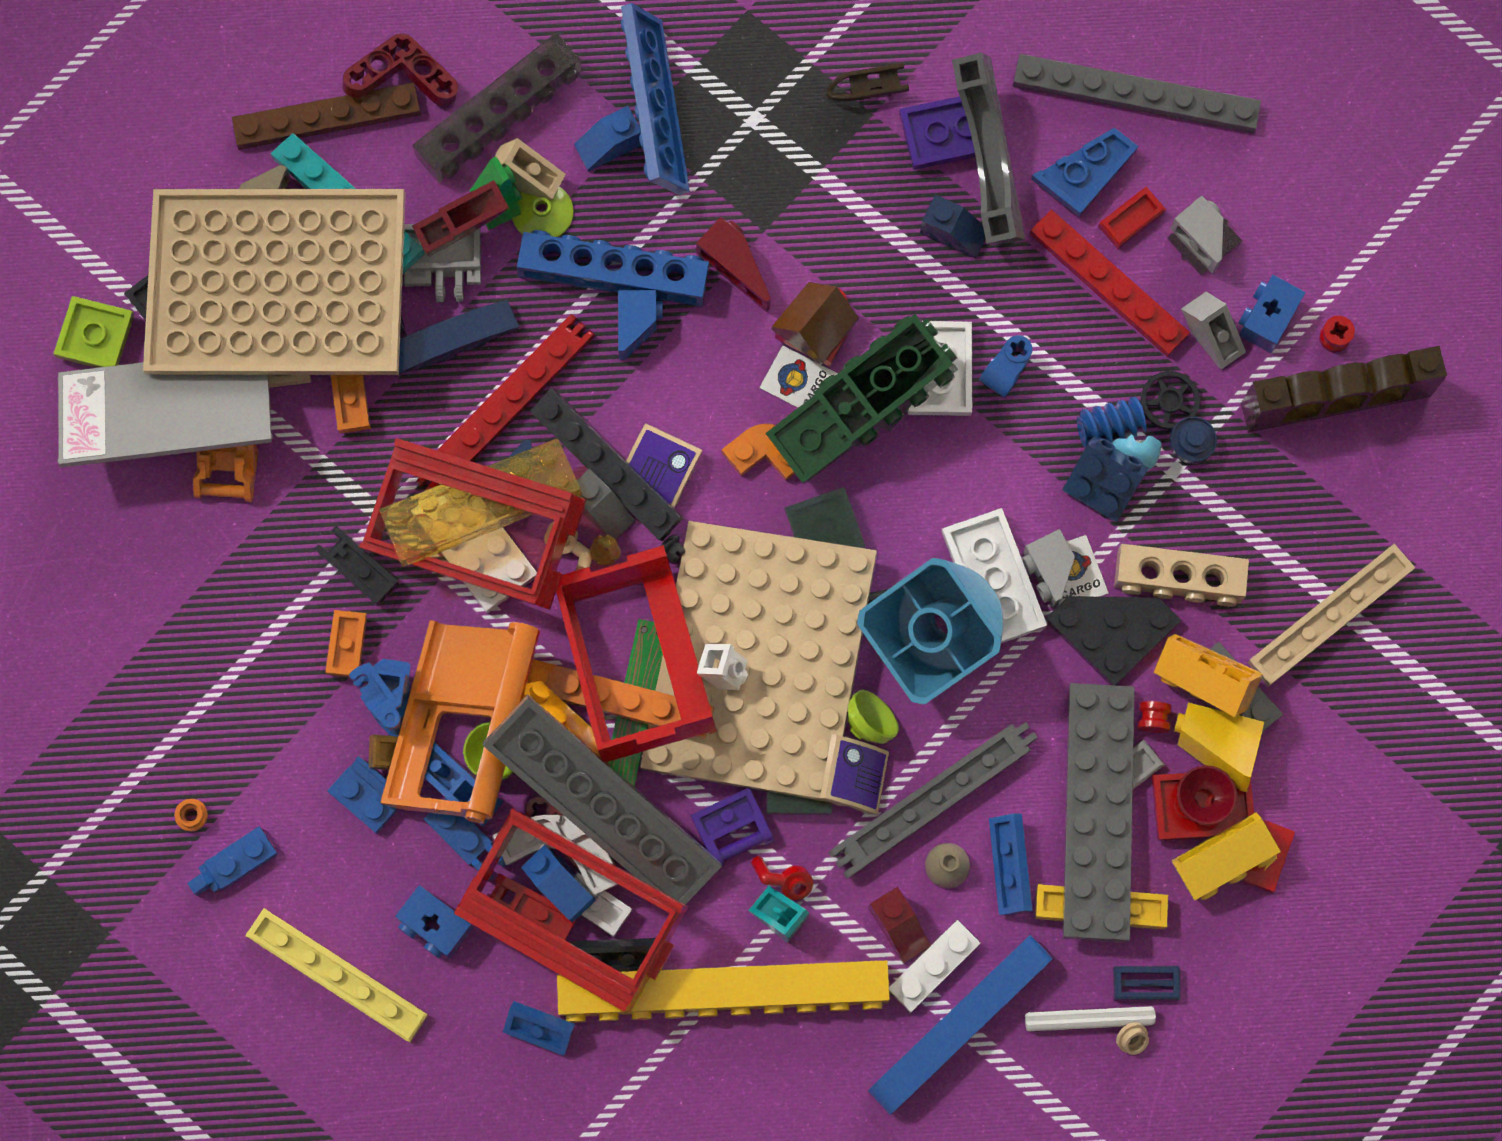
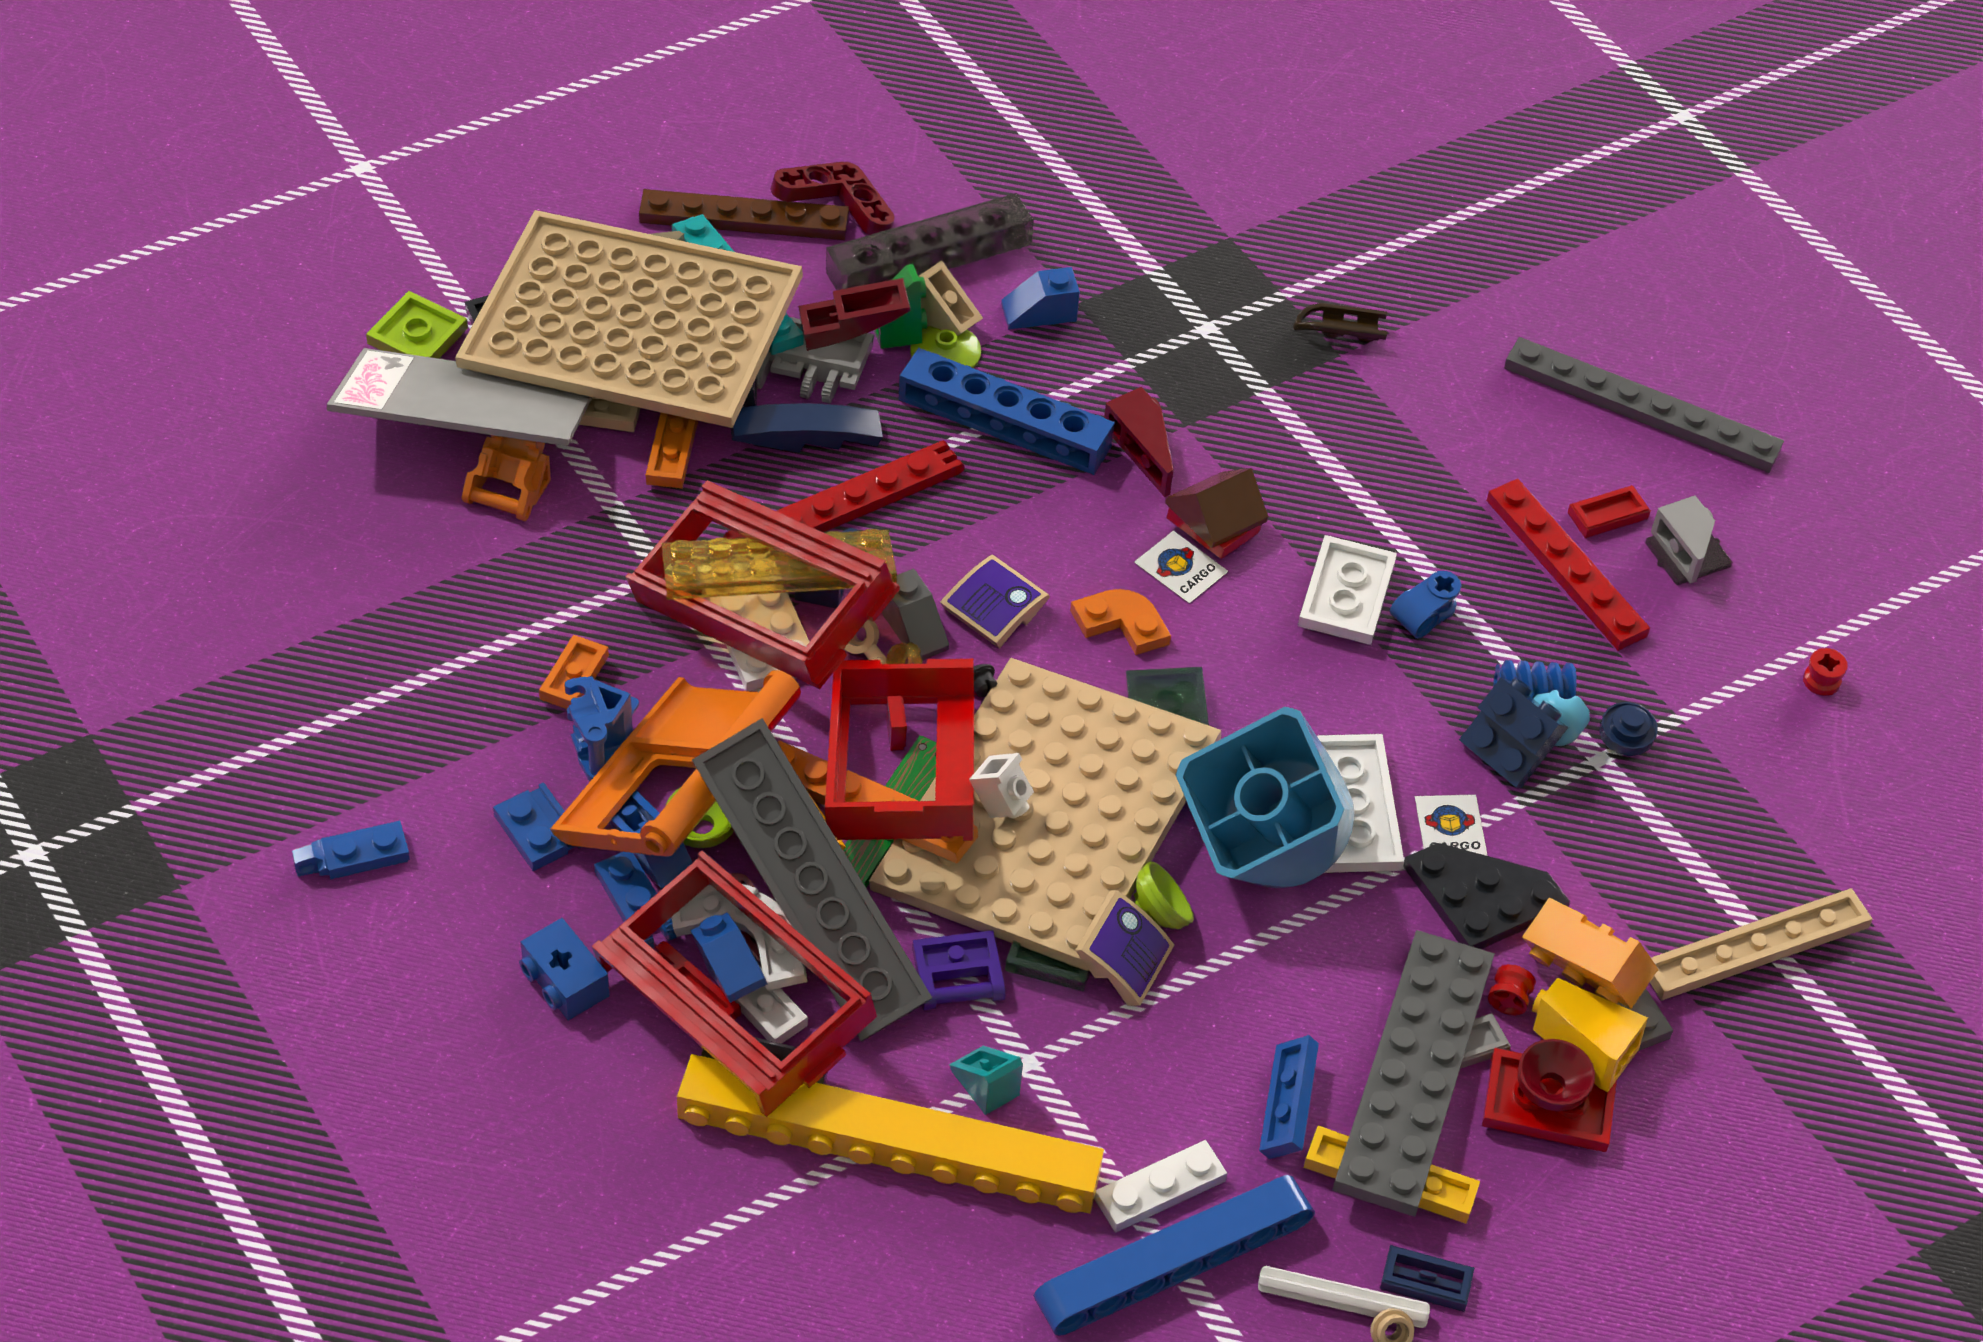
camera: 15 degrees right, 25 degrees down
(184, 807) = (323, 782): orange plate -> none
(336, 975) = (428, 999): light yellow tile -> none
(359, 567) = (617, 606): black hinge -> none
(381, 751) = (571, 782): pearl gold tile -> none
(538, 1028) = (647, 1113): blue plate -> none
(607, 464) = (953, 601): black plate -> none
(617, 614) = (896, 723): none -> red tile
(636, 319) = (1015, 460): blue slope -> none
(654, 99) = (1102, 274): blue plate -> none
(786, 880) = (1006, 1035): red plate -> none
(864, 397) = (1254, 573): dark green wedge -> none
(899, 924) = (1130, 1121): dark red slope -> none
(933, 798) = (1212, 1004): dark grey hinge -> none
(937, 133) = (1424, 383): dark purple plate -> none
(947, 865) = (1211, 1081): dark tan brick -> none
(953, 226) = (1400, 464): dark blue slope -> none
(983, 112) = (1460, 441): dark grey arch -> none
(1051, 563) = (1425, 803): light grey slope -> none
(1085, 173) = (1568, 457): blue wing -> none
(1170, 399) = (1609, 686): black wheel -> none
(1214, 329) = (1680, 630): light grey slope -> none
(1226, 857) = (1565, 1154): yellow brick -> none
(1230, 571) = (1581, 853): tan brick -> none
(1268, 876) = (1619, 1180): red tile -> none
(1282, 300) = (1750, 632): blue brick -> none
(1343, 389) = (1734, 686): dark brown fence -> none

